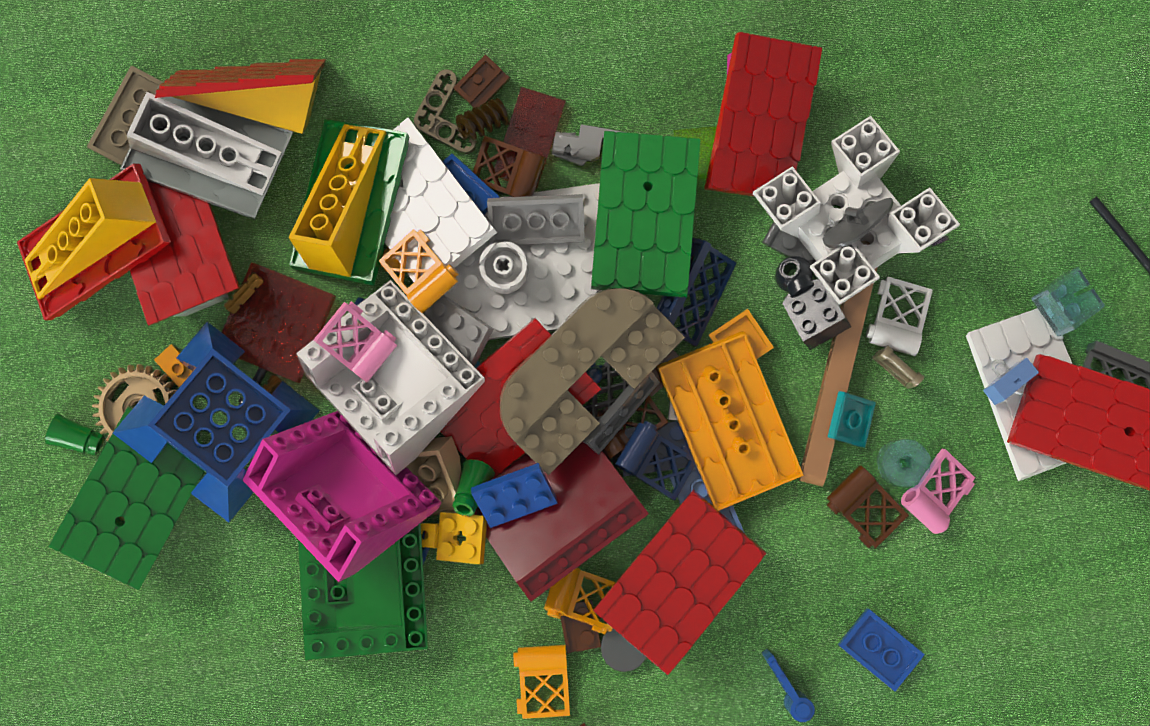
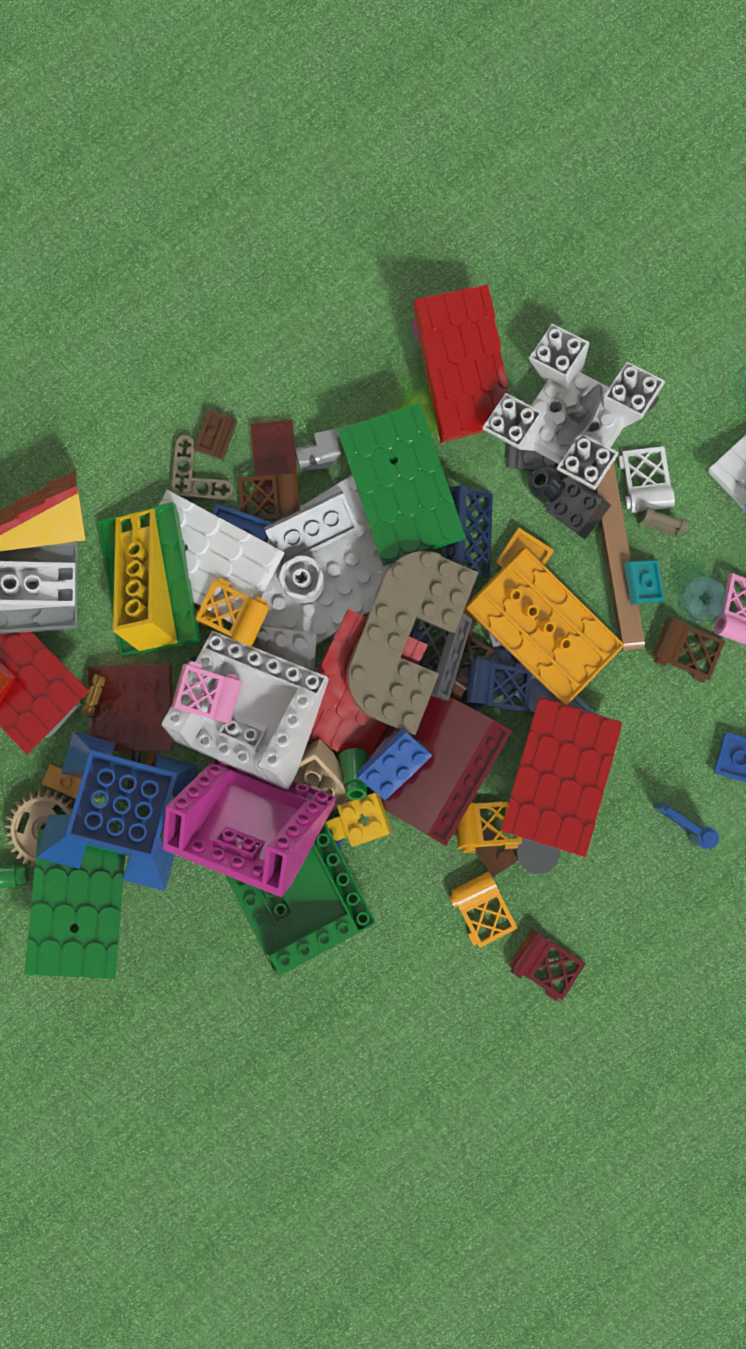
camera: 25 degrees left, 0 degrees up
(482, 117) = (229, 464): dark brown piece -> none

